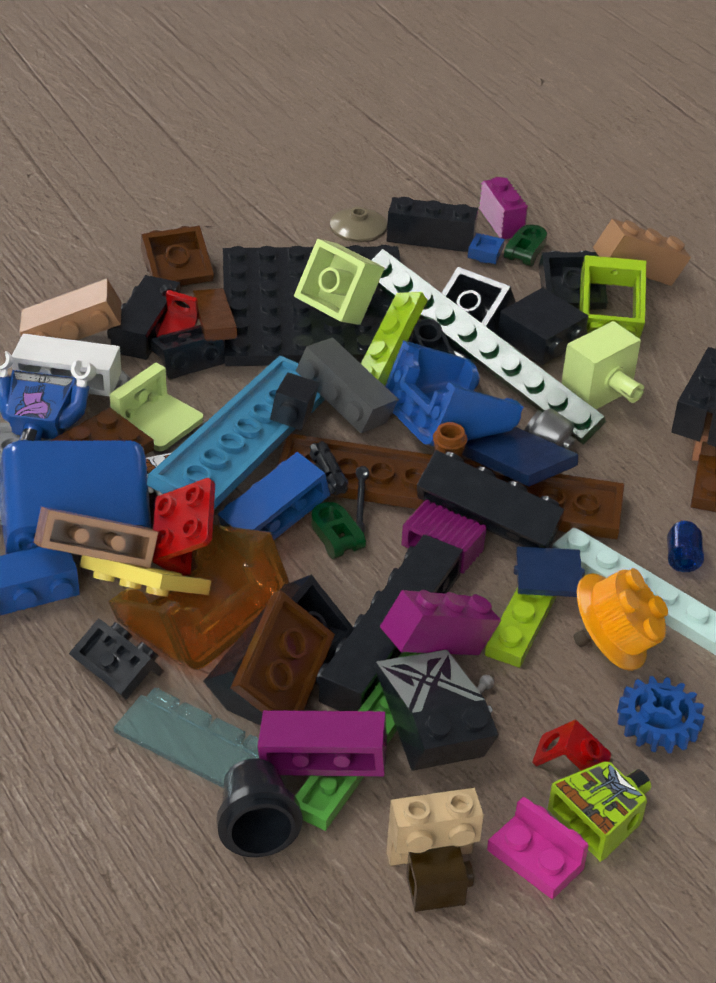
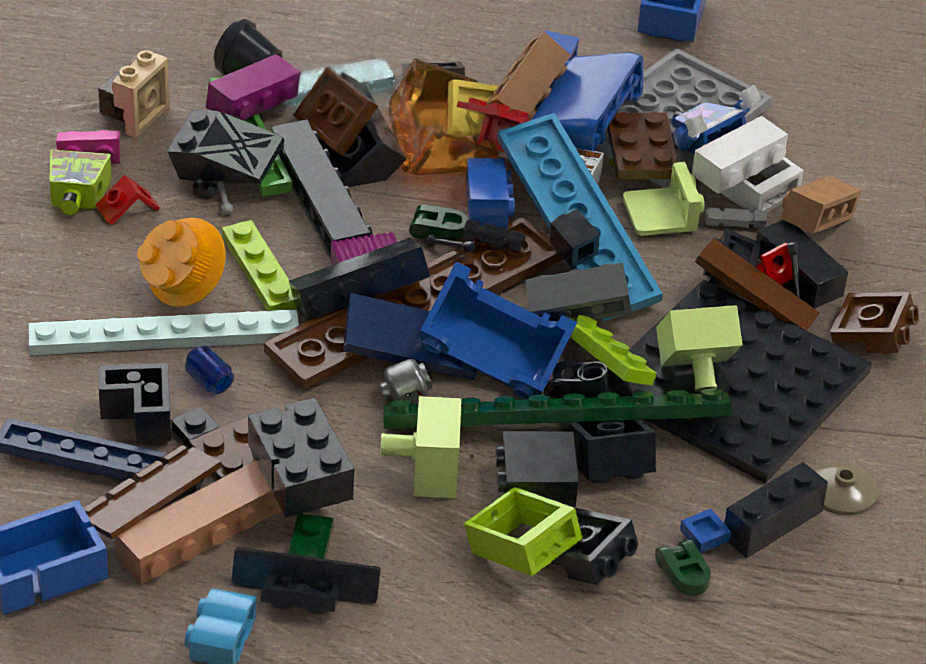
camera: 130 degrees right, 0 degrees up
(440, 622) = (276, 178): magenta brick -> none
(450, 438) = (431, 278): dark orange cone -> none
(502, 207) = (756, 580): magenta brick -> none
(548, 571) = (266, 276): dark blue piece -> none
(660, 714) = (99, 248): blue gear -> none
(663, 255) = (559, 590): medium nougat brick -> none

